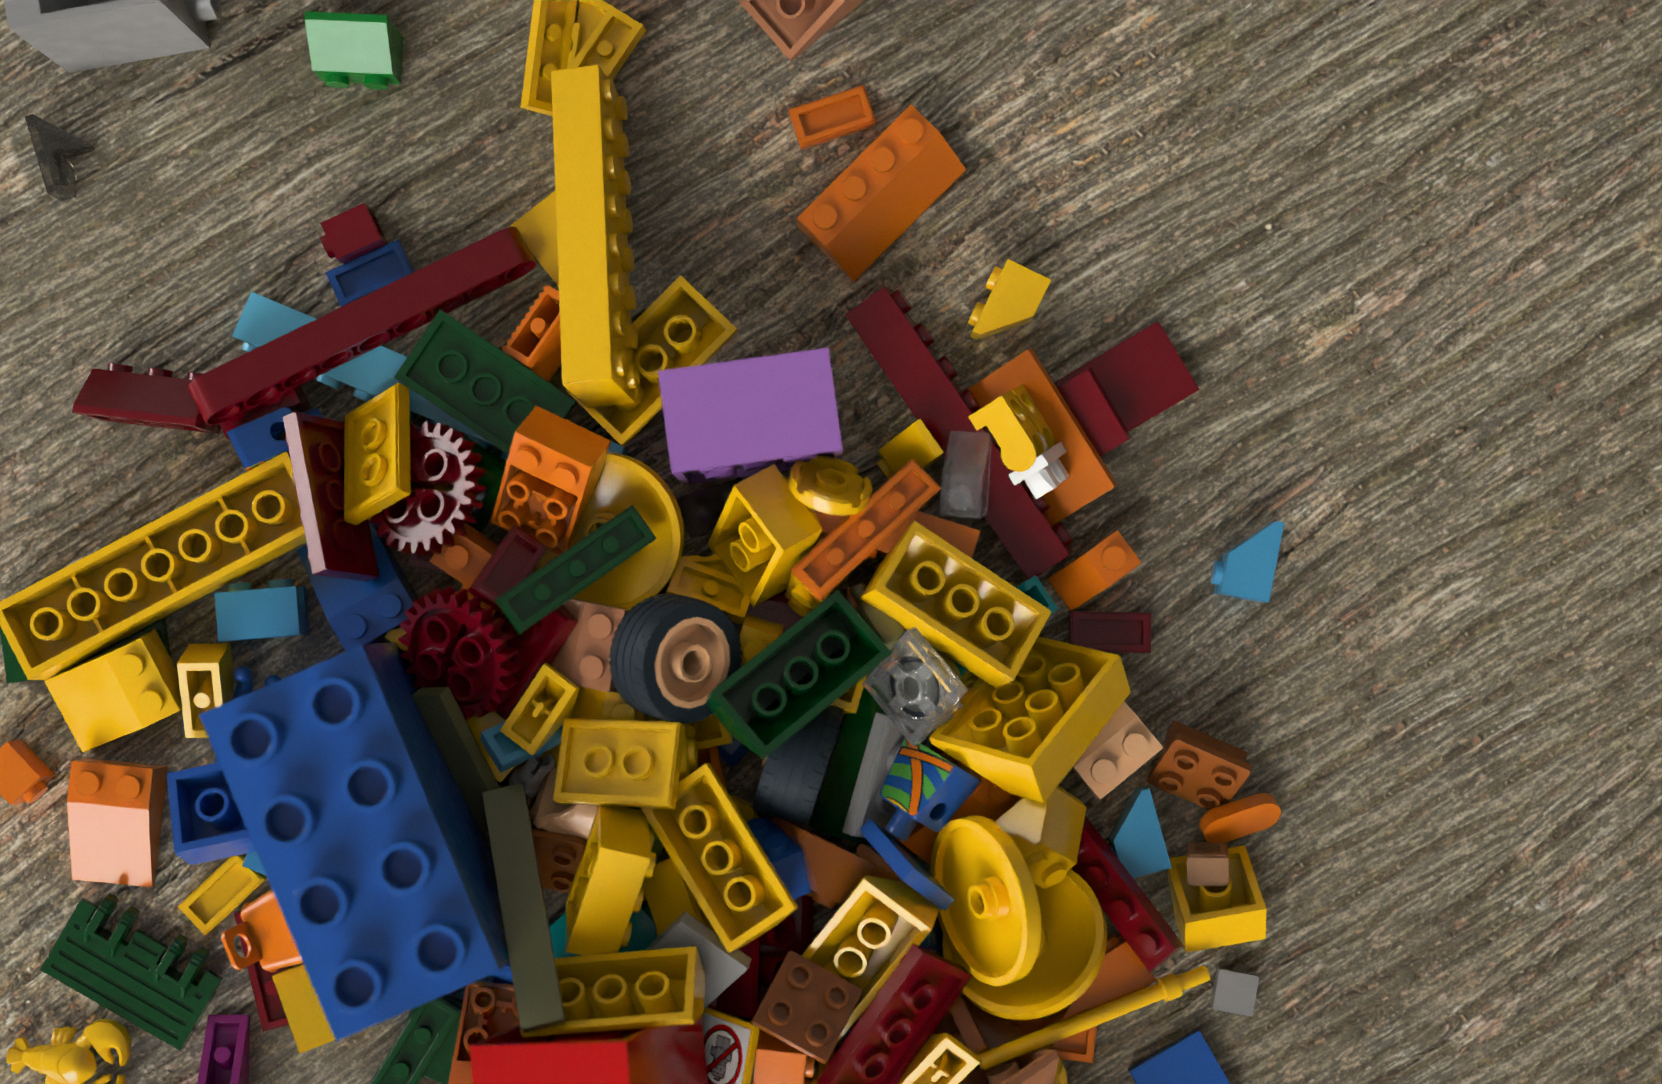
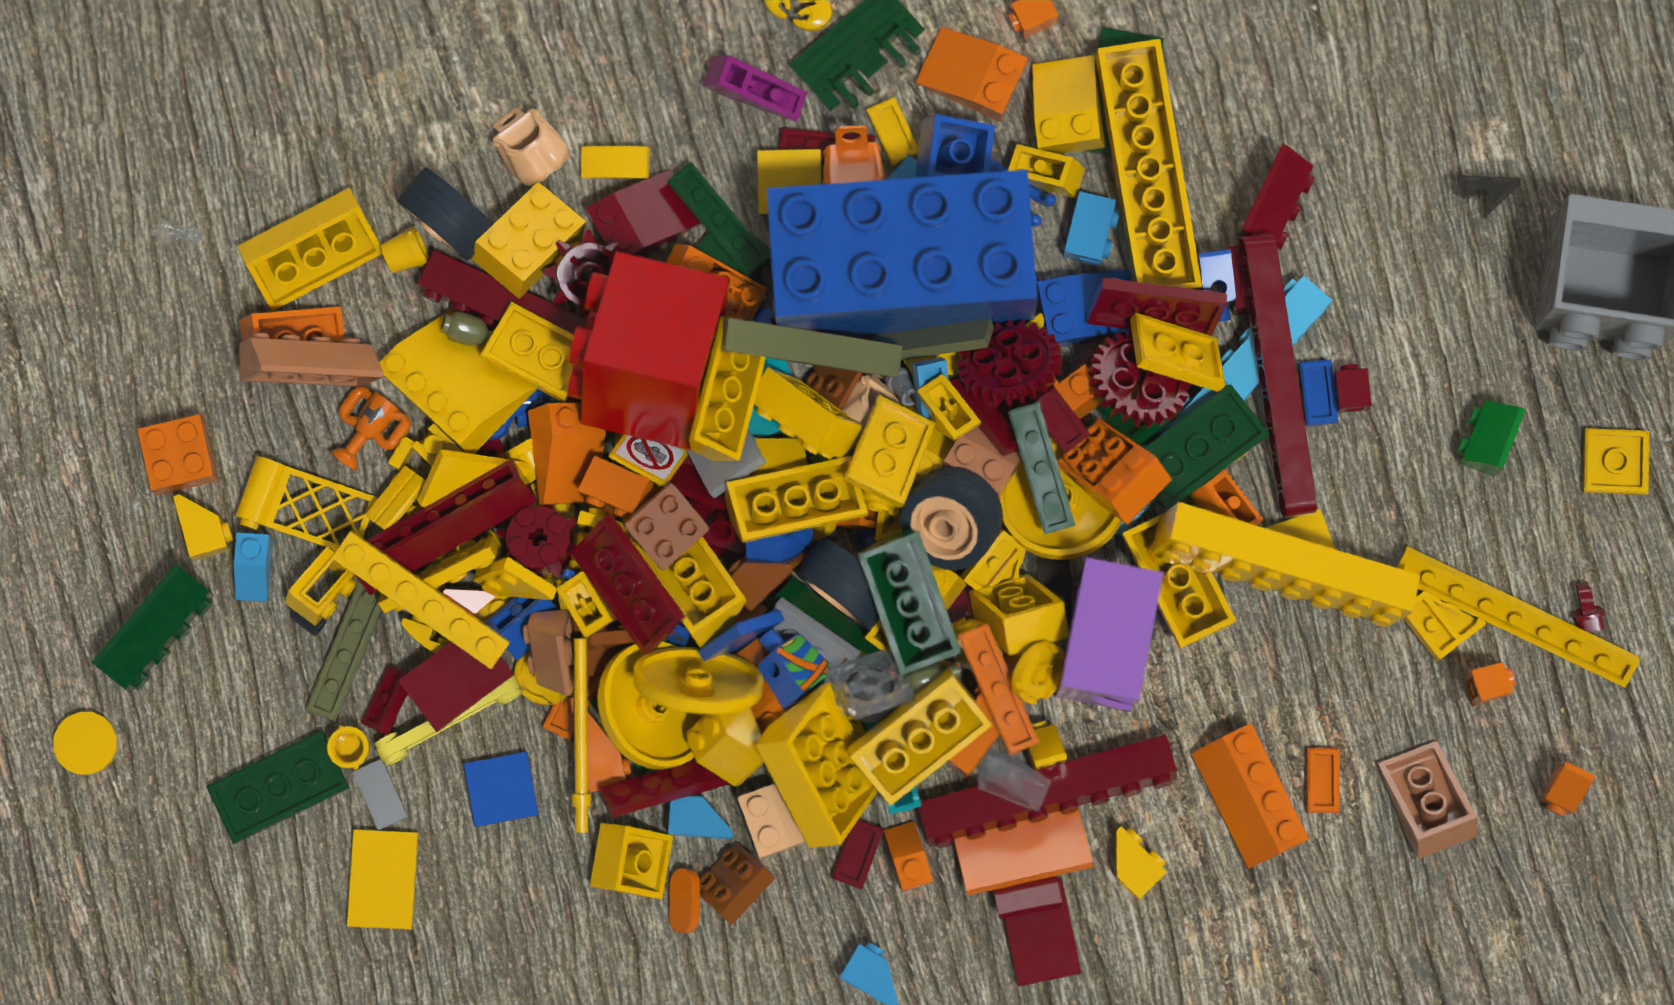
camera: 110 degrees right, 5 degrees down
(1024, 440) = (1024, 832): yellow hips -> none
(1207, 864) = (660, 863): medium nougat slope -> none
(1234, 991) = (556, 852): light grey tile -> none

